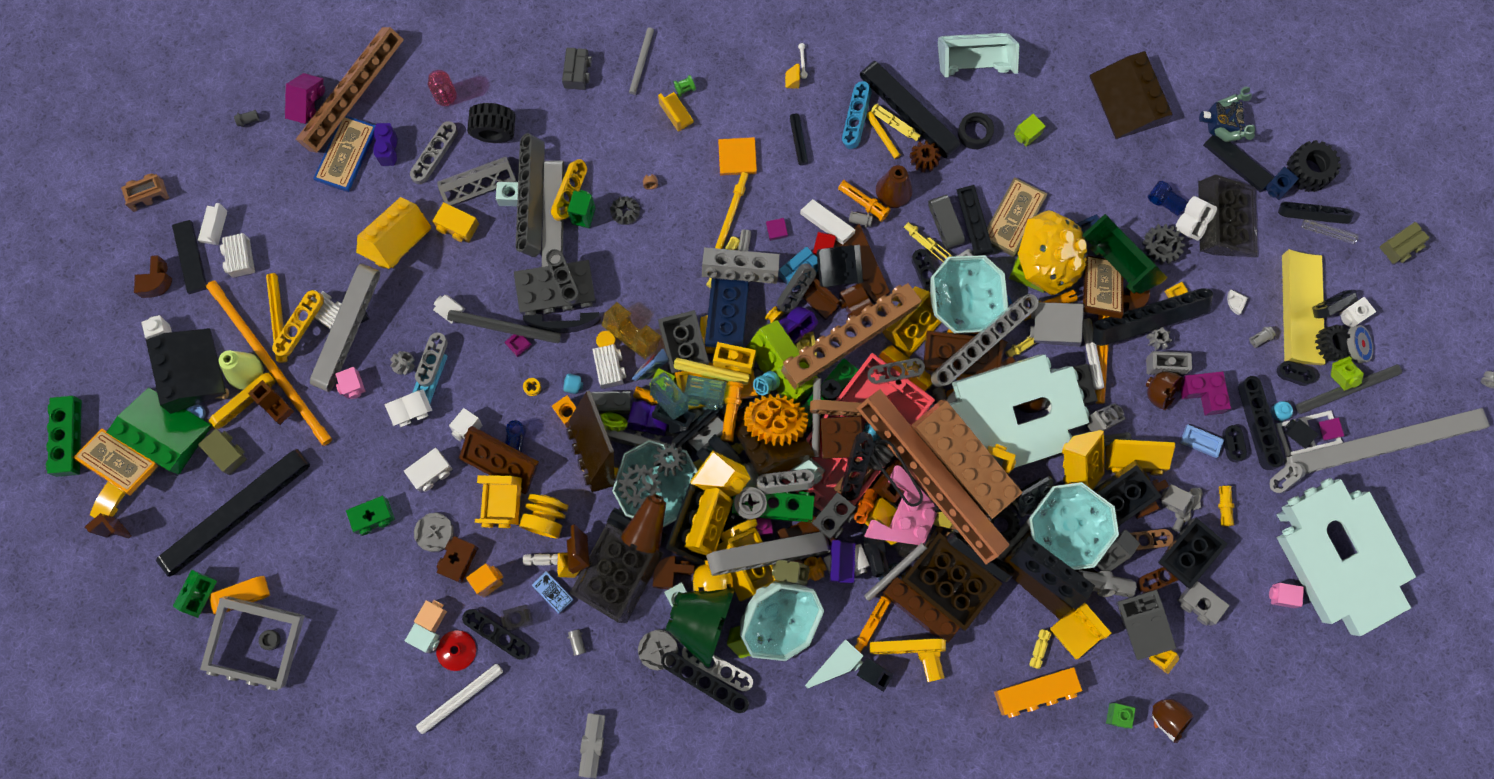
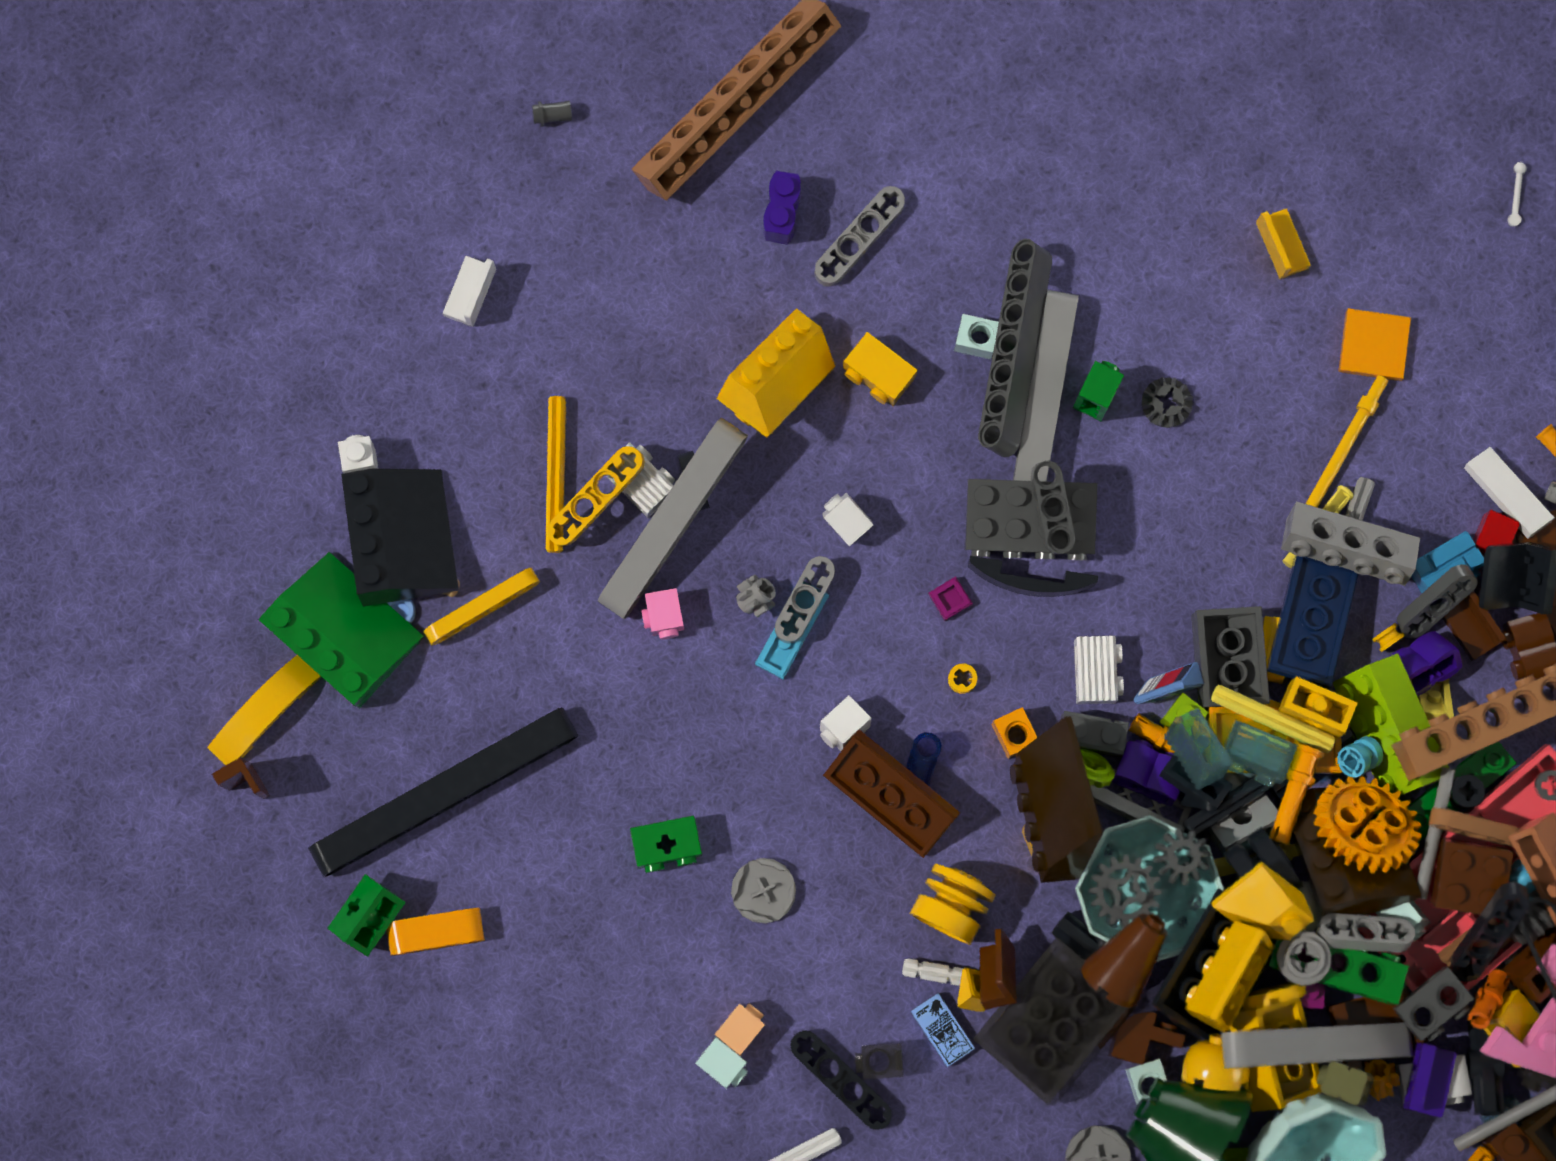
camera: 10 degrees right, 5 degrees up
(71, 443) = (185, 658): green brick -> none
(115, 462) = (265, 670): tile -> none
(143, 191) = (364, 209): medium nougat window -> none
(154, 283) = (361, 376): reddish brown brick -> none
(189, 256) = (424, 339): black tile -> none
(223, 451) = (439, 686): olive brick -> none
(237, 255) = (506, 354): white brick -> none
(240, 368) = (491, 563): yellowish green cone -> none
(260, 610) = (469, 965): light grey window -> none
(269, 640) = (472, 1013): dark grey tile -> none
(271, 402) = (532, 621): reddish brown brick -> none
(301, 97) = (655, 96): magenta brick -> none
(318, 430) = (598, 679): light orange piece -> none
(345, 153) = (709, 209): tile -> none
(408, 407) = (756, 675): white brick -> none
(428, 470) = (772, 786): white brick -> none
(441, 88) = (894, 128): clear pink piece -> none
(462, 550) = (813, 936): reddish brown brick -> none
(465, 654) = (788, 1098): red dish -> none
(472, 175) = (924, 290): light grey fence -> none
(485, 580) = (842, 989): light orange brick -> none
(491, 123) = (970, 208): black tyre -> none
(500, 501) = (882, 863): yellow panel -> none
(503, 326) = (935, 568): dark grey axle -> none
(566, 188) = (1065, 381): yellow beam -> none
(572, 383) = (1030, 686): medium azure piece -> none
(576, 68) = (1126, 134): dark grey brick -> none
(576, 642) = (969, 1120): light grey pin -> none
(605, 338) = (1097, 622): yellow tile -> none
(619, 323) = (1128, 604): clear yellow arch -> none
(641, 61) = (1239, 140): light grey bar -> none
(650, 182) = (1218, 361): medium nougat hinge -> none
(684, 85) = (1306, 201): bright green bush -> none
(776, 229) = (1418, 486): magenta tile -> none
(792, 77) = (1496, 222): yellow slope -> none
(798, 139) = (1485, 335): black axle -> none

